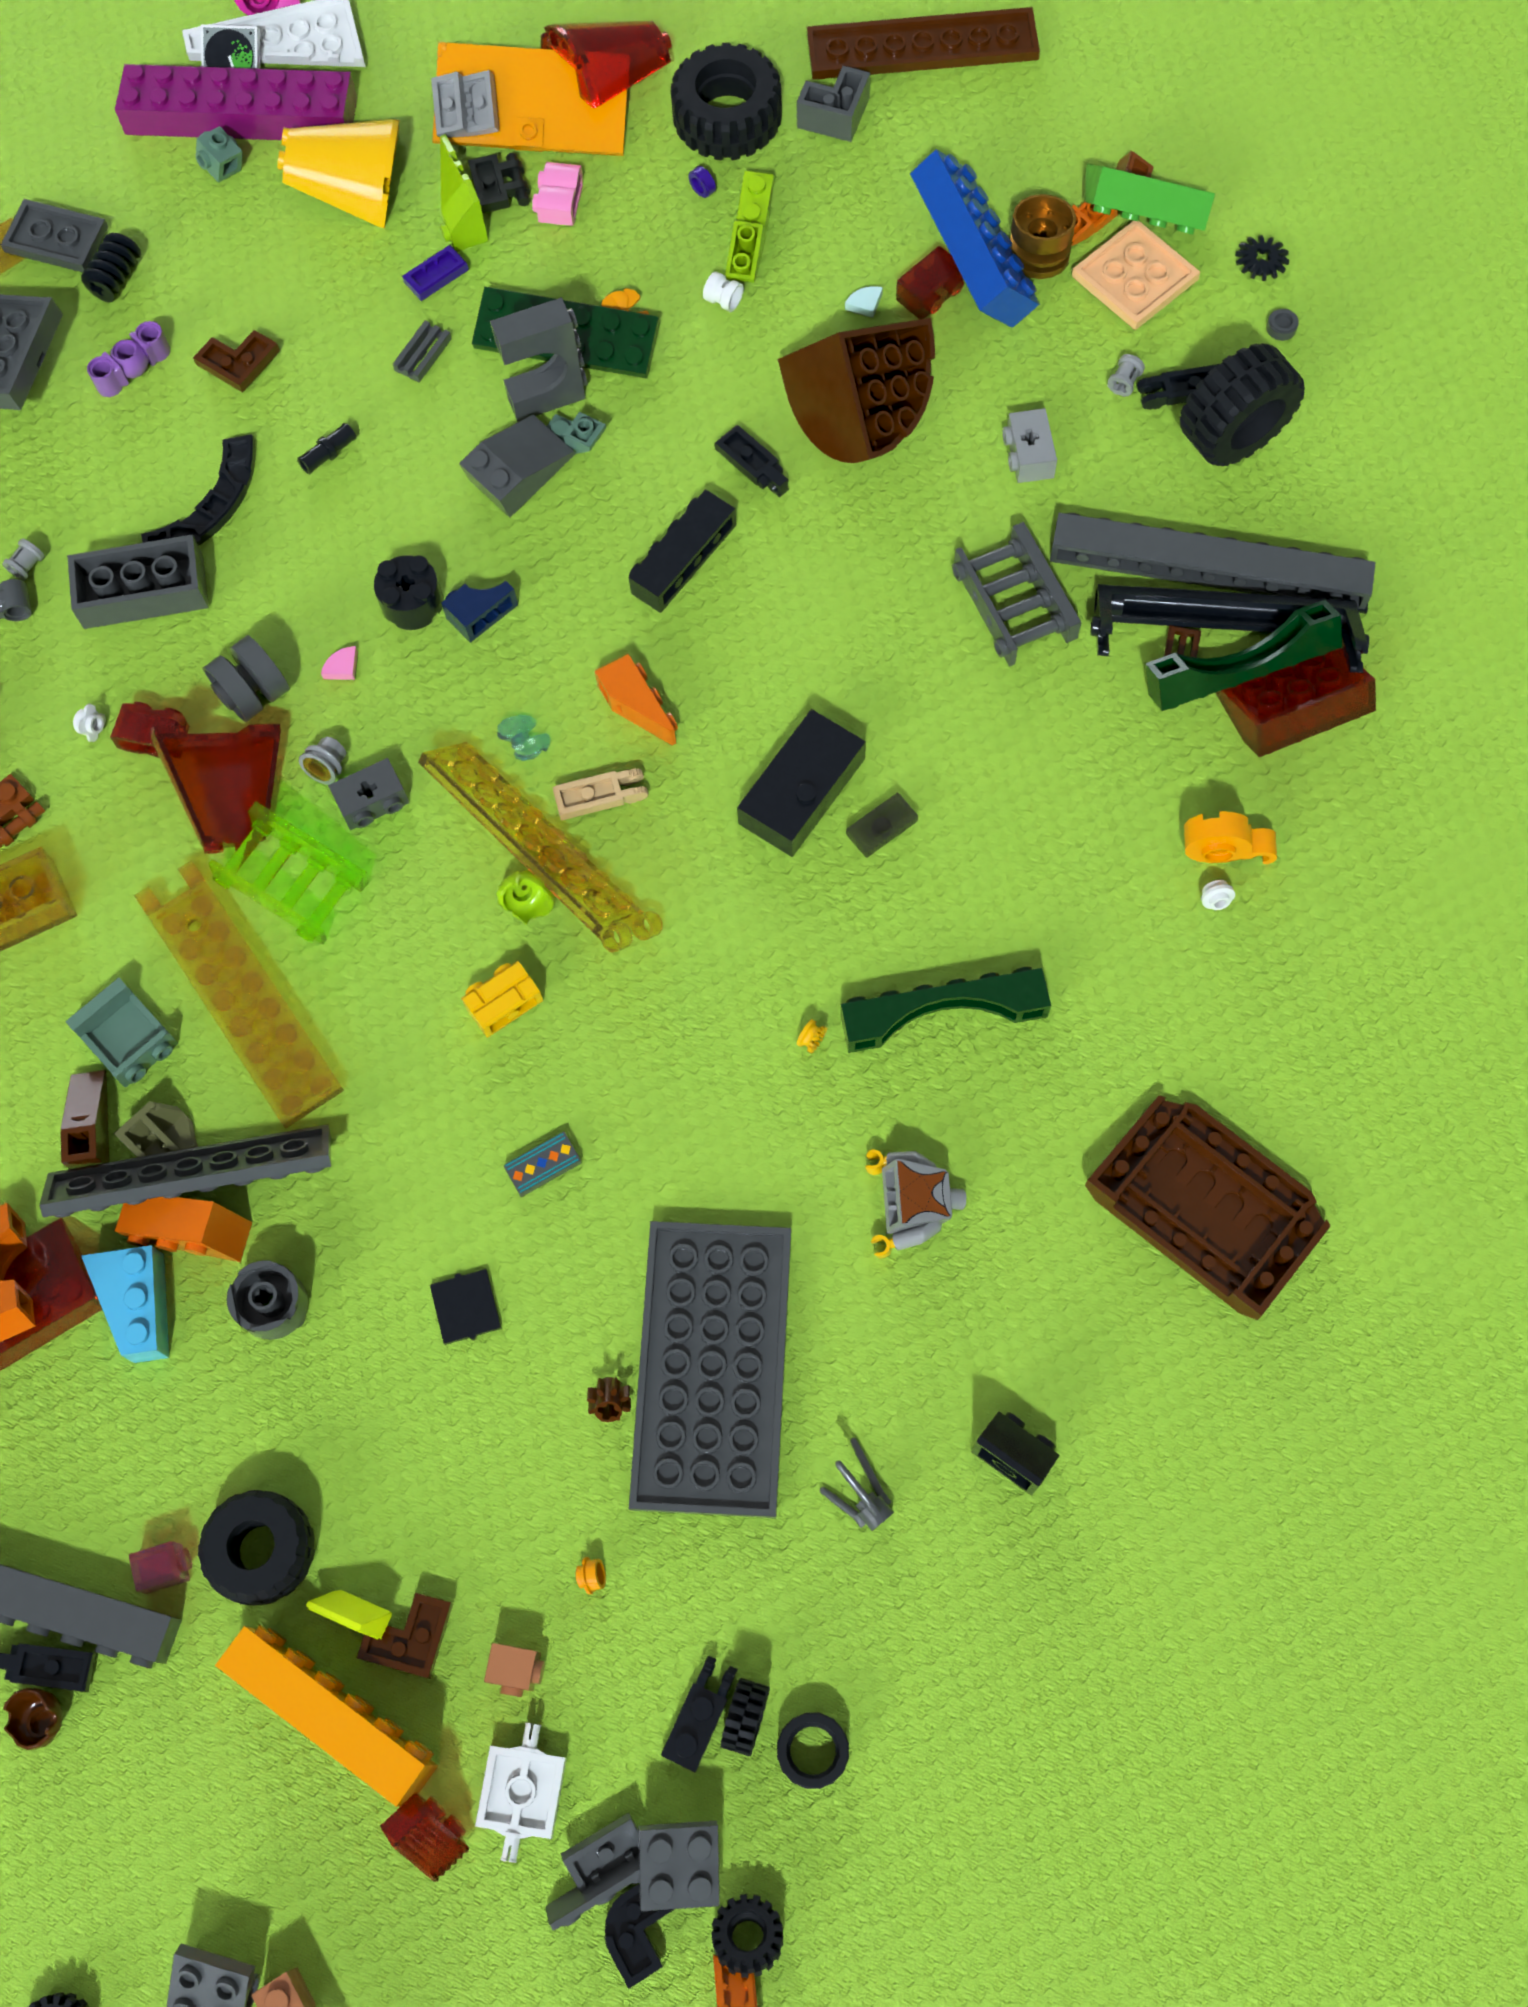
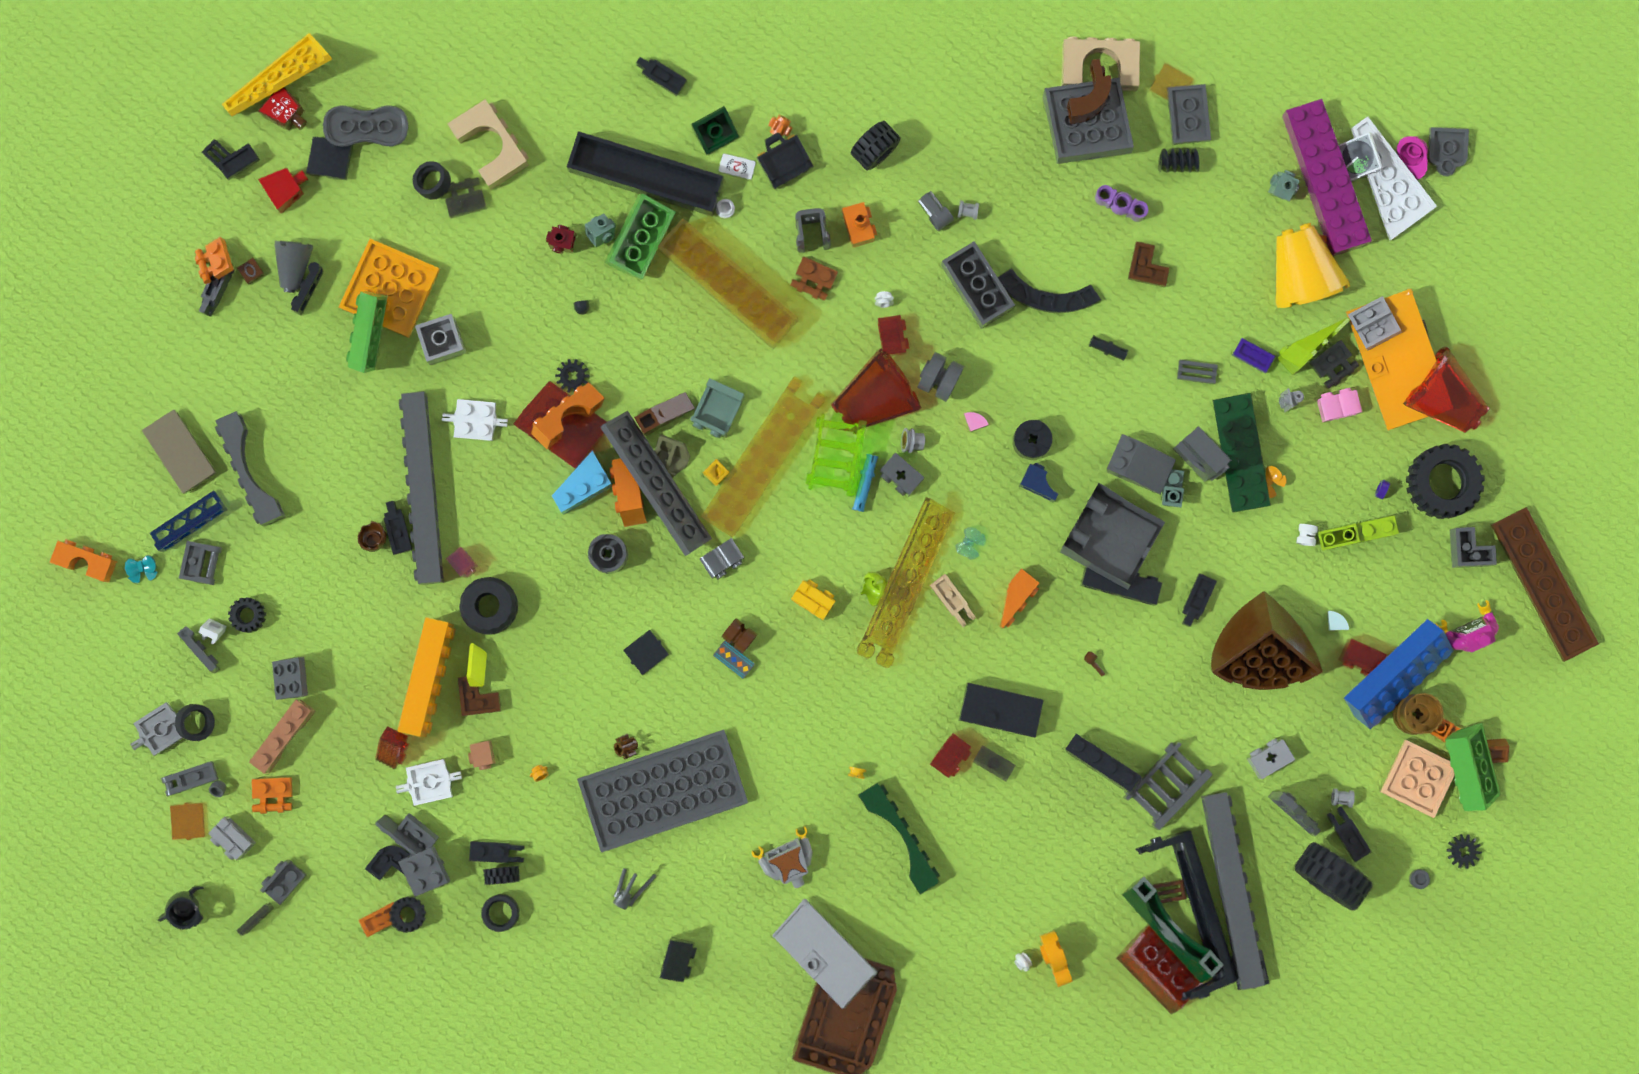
camera: 65 degrees right, 15 degrees up
(224, 1075) = (715, 472): none -> yellow tile
(346, 847) = (865, 482): none -> pin
(368, 1117) = (722, 558): none -> dark grey brick
(506, 1136) = (739, 635): none -> reddish brown wheel
(518, 240) = (1290, 399): none -> light grey hinge
(605, 531) = (1112, 536): none -> dark grey piece
(778, 635) = (1090, 659): none -> reddish brown hand
(843, 883) = (950, 756): none -> clear red brick
(948, 661) = (1103, 764): none -> black brick
(956, 129) = (1474, 634): none -> dark pink torso
(1095, 1193) = (824, 953): none -> light grey door
(1119, 431) = (1295, 811): none -> dark grey plate

